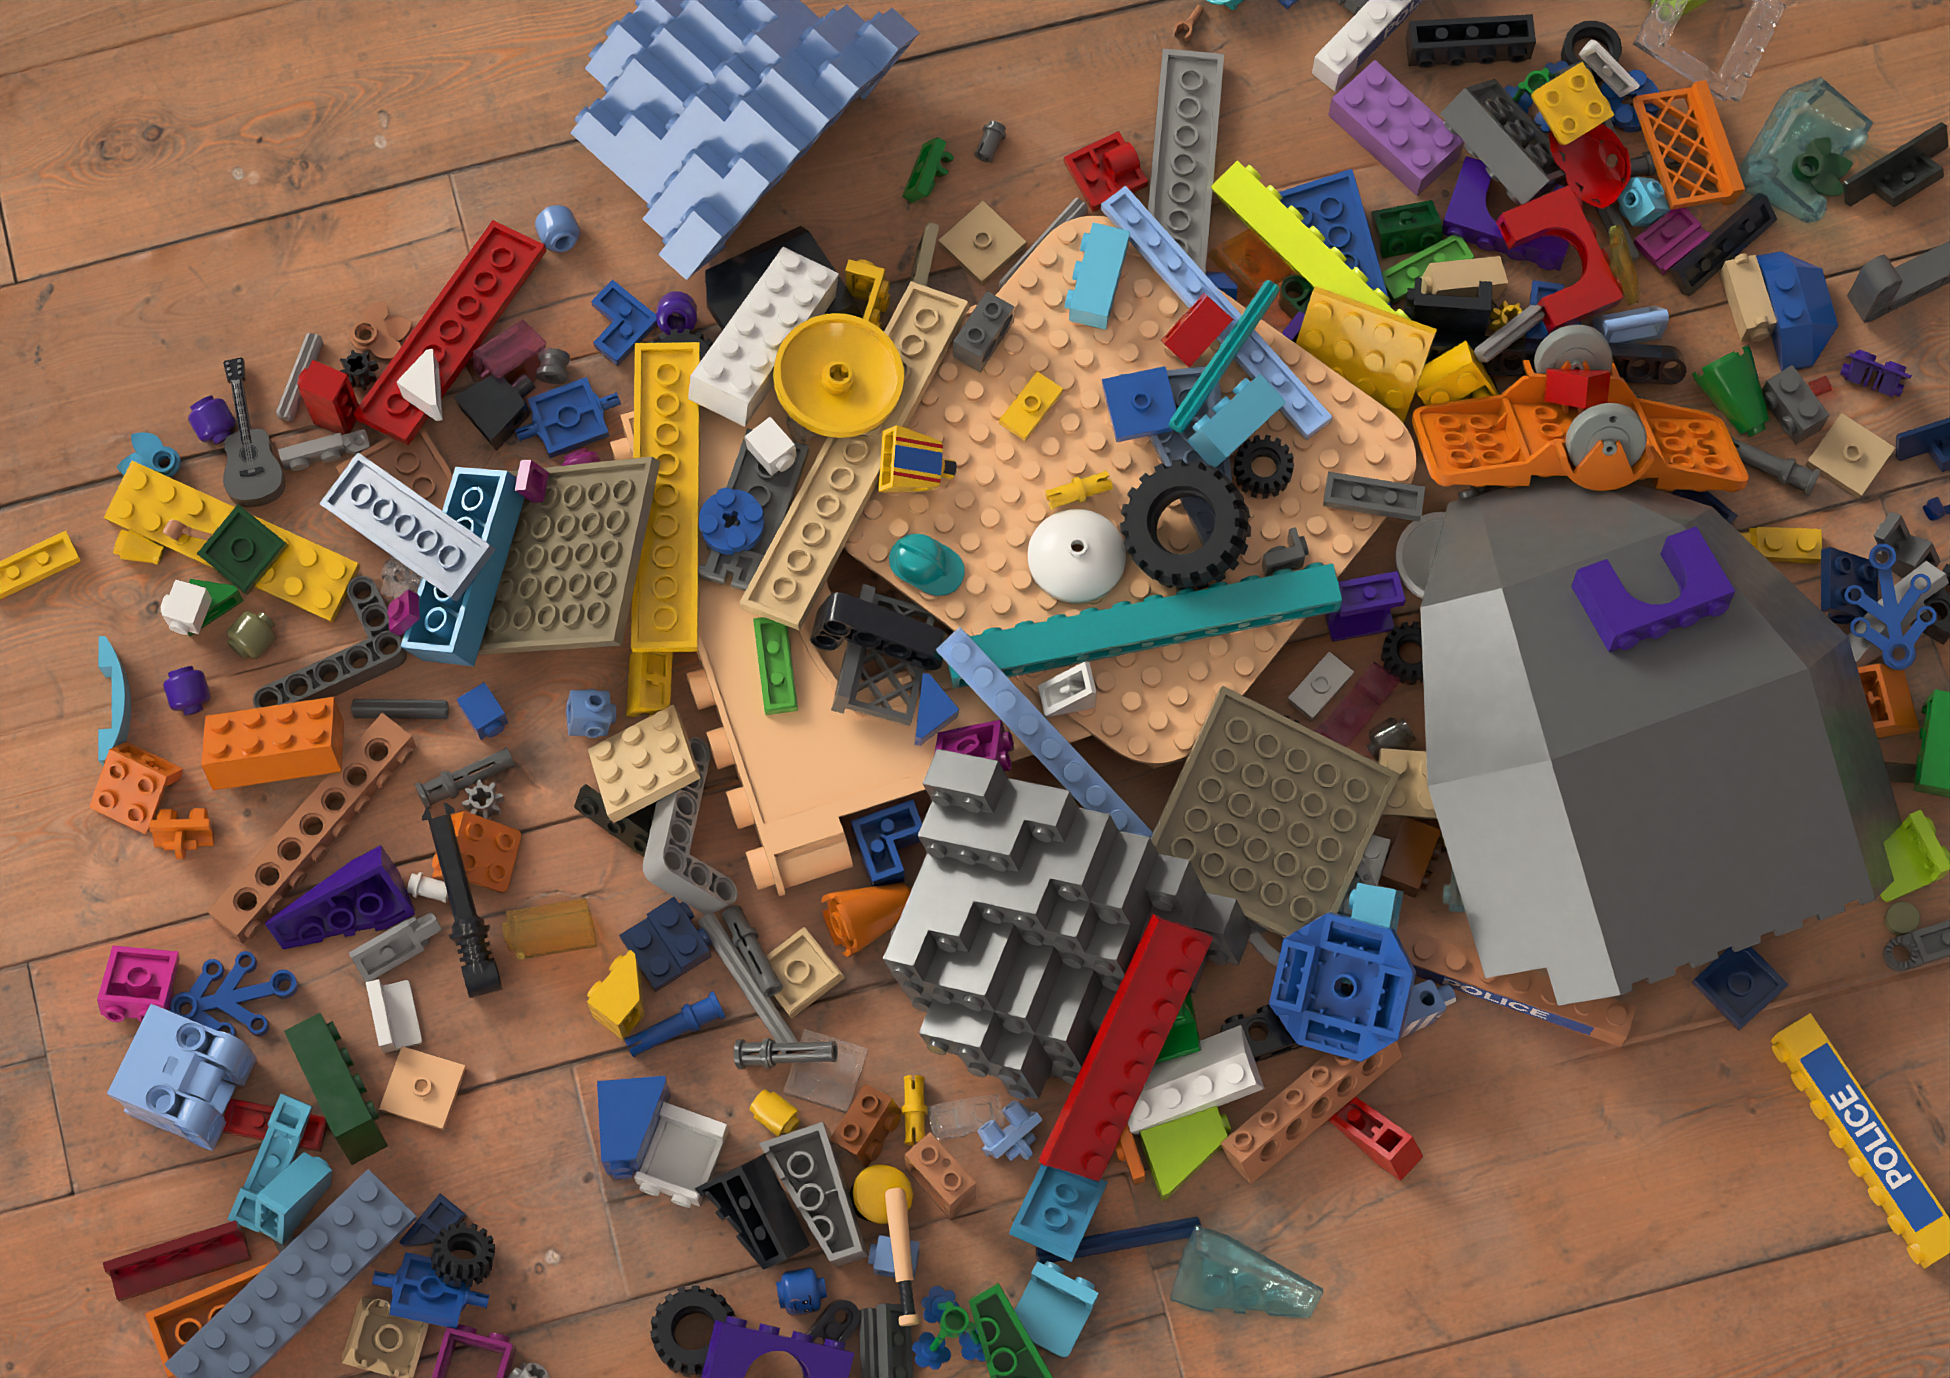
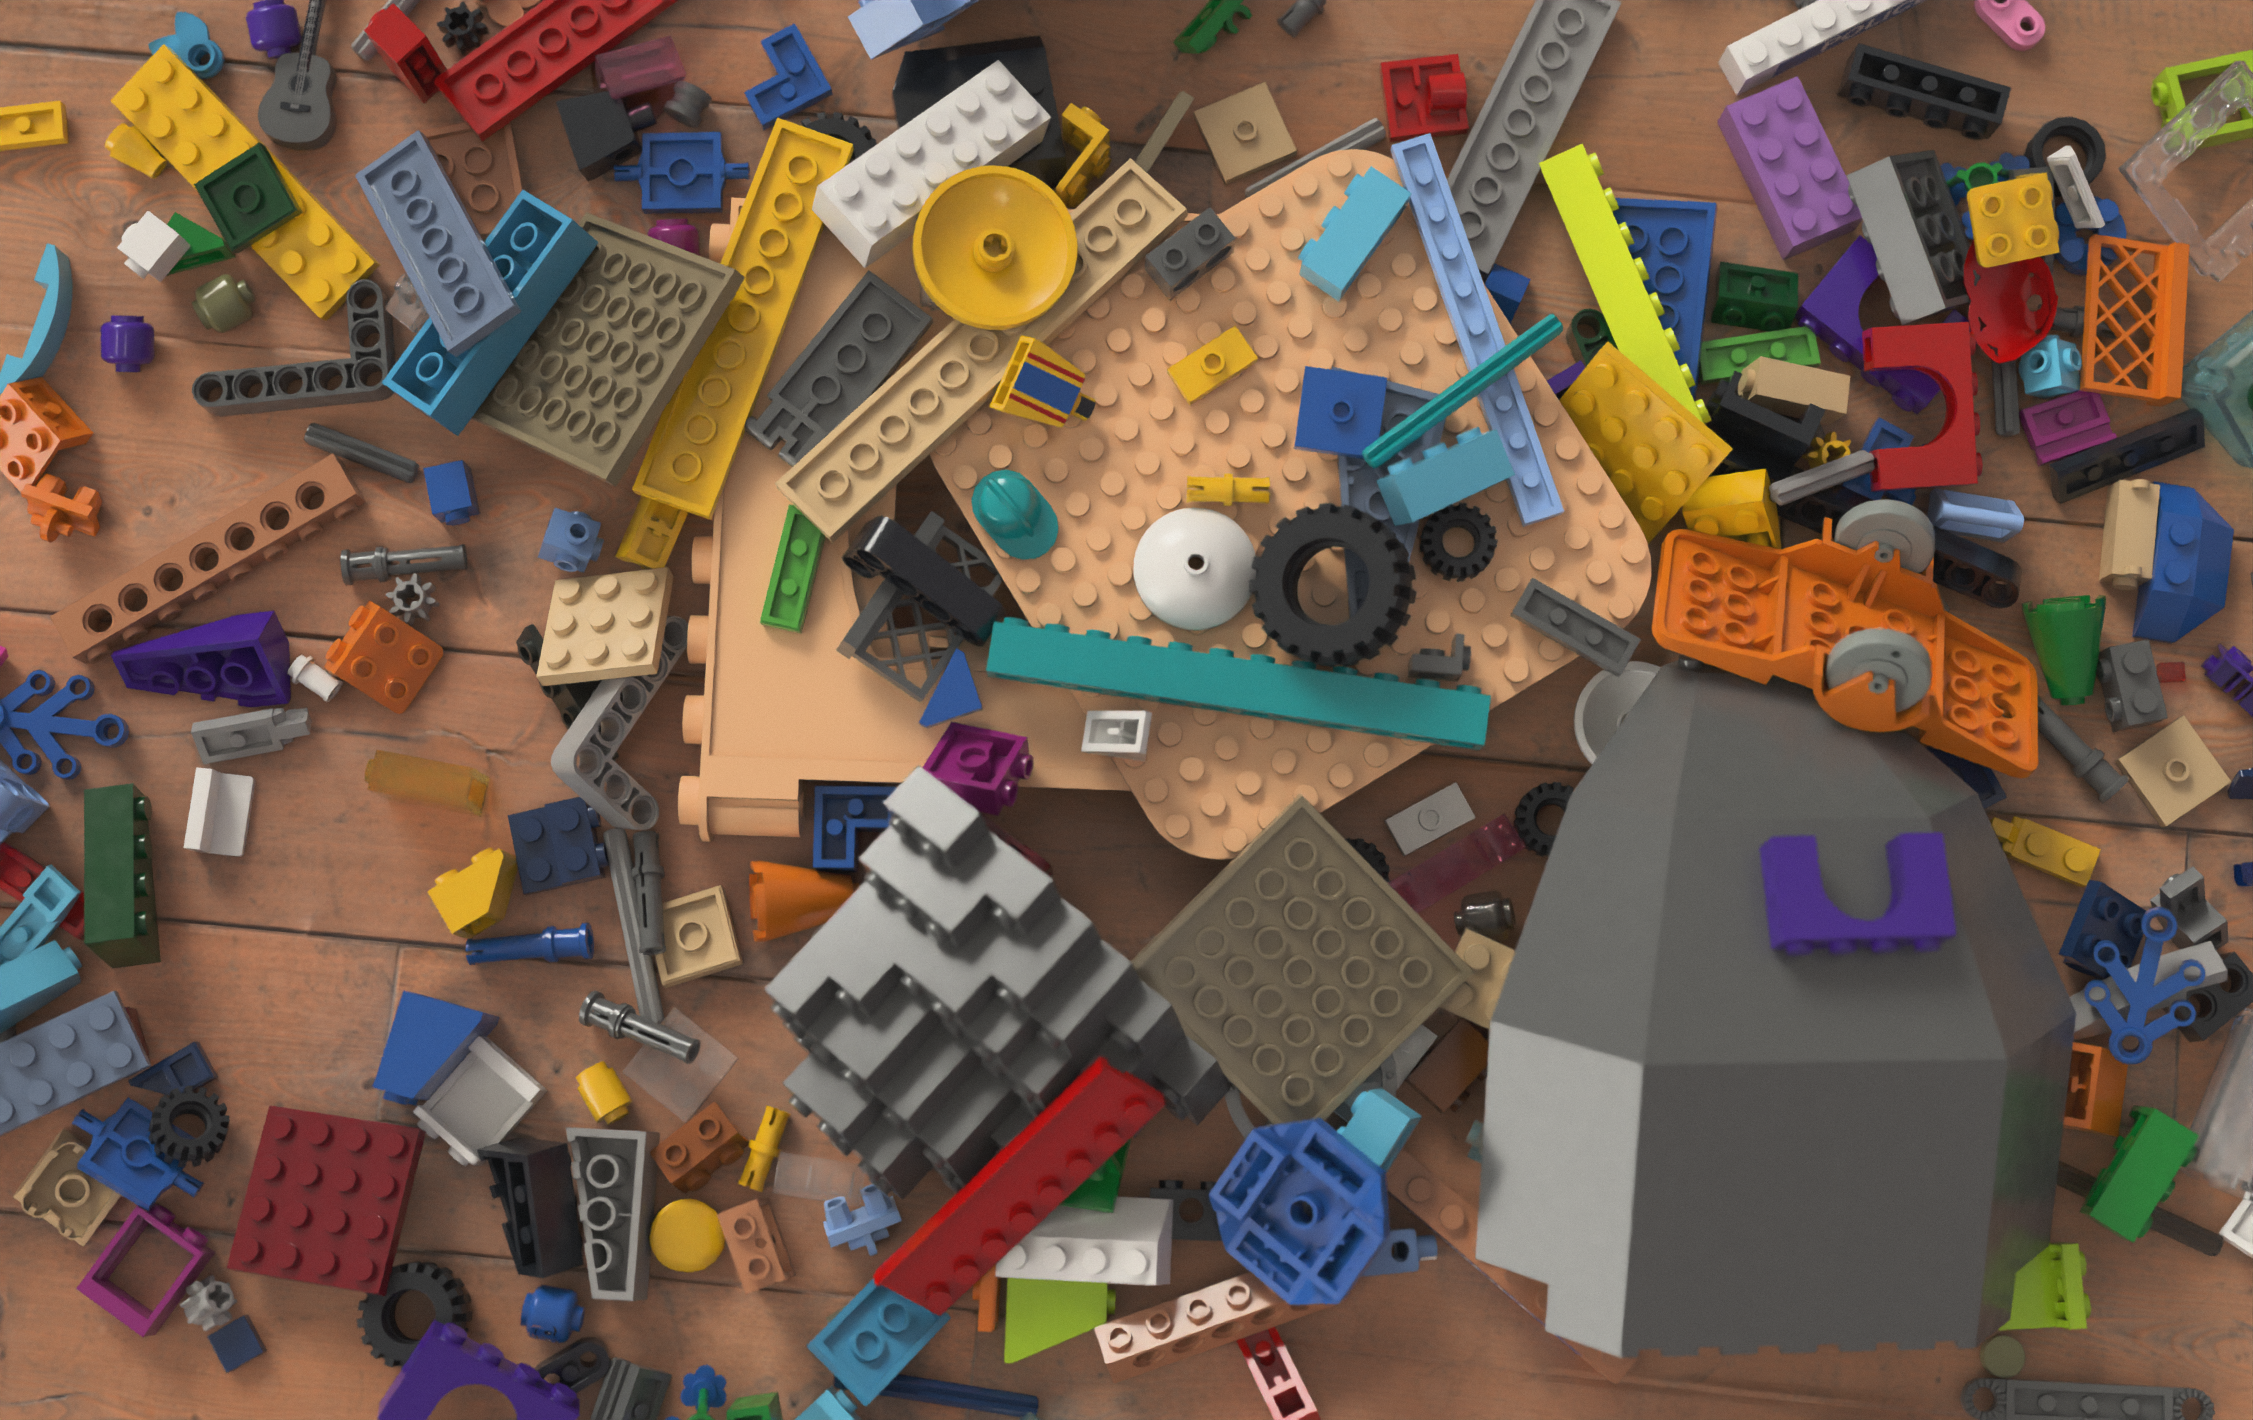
camera: 20 degrees right, 10 degrees up
(175, 529) = (179, 146): nougat hand -> none
(273, 743) = (194, 445): orange brick -> none
(326, 449) = (388, 109): light grey hinge -> none
(403, 612) = (398, 343): magenta plate -> none
(422, 385) = (522, 76): white slope -> none
(422, 1088) = (221, 911): light nougat plate -> none
(469, 929) = (333, 799): black piece -> none
(531, 481) = (600, 240): magenta plate -> none
(593, 1268) = (327, 1200): none -> dark red plate
(677, 312) = (852, 92): dark purple head -> none
(733, 539) = (805, 355): blue plate -> none
(771, 447) = (883, 307): white brick -> none
(882, 1257) = (674, 1314): medium blue brick -> none
(900, 1242) = (679, 1313): light nougat piece -> none
(1037, 732) = (1070, 782): light blue plate -> none
(1196, 330) = (1443, 345): red hinge -> none
(1249, 262) = (1549, 274): clear orange plate -> none
(1366, 606) = (1518, 750): dark purple panel -> none
(1577, 387) = (1875, 578): red slope -> none
(1623, 265) = (1994, 441): clear yellow plate -> none
(1740, 985) = (1780, 1379): dark blue plate -> none

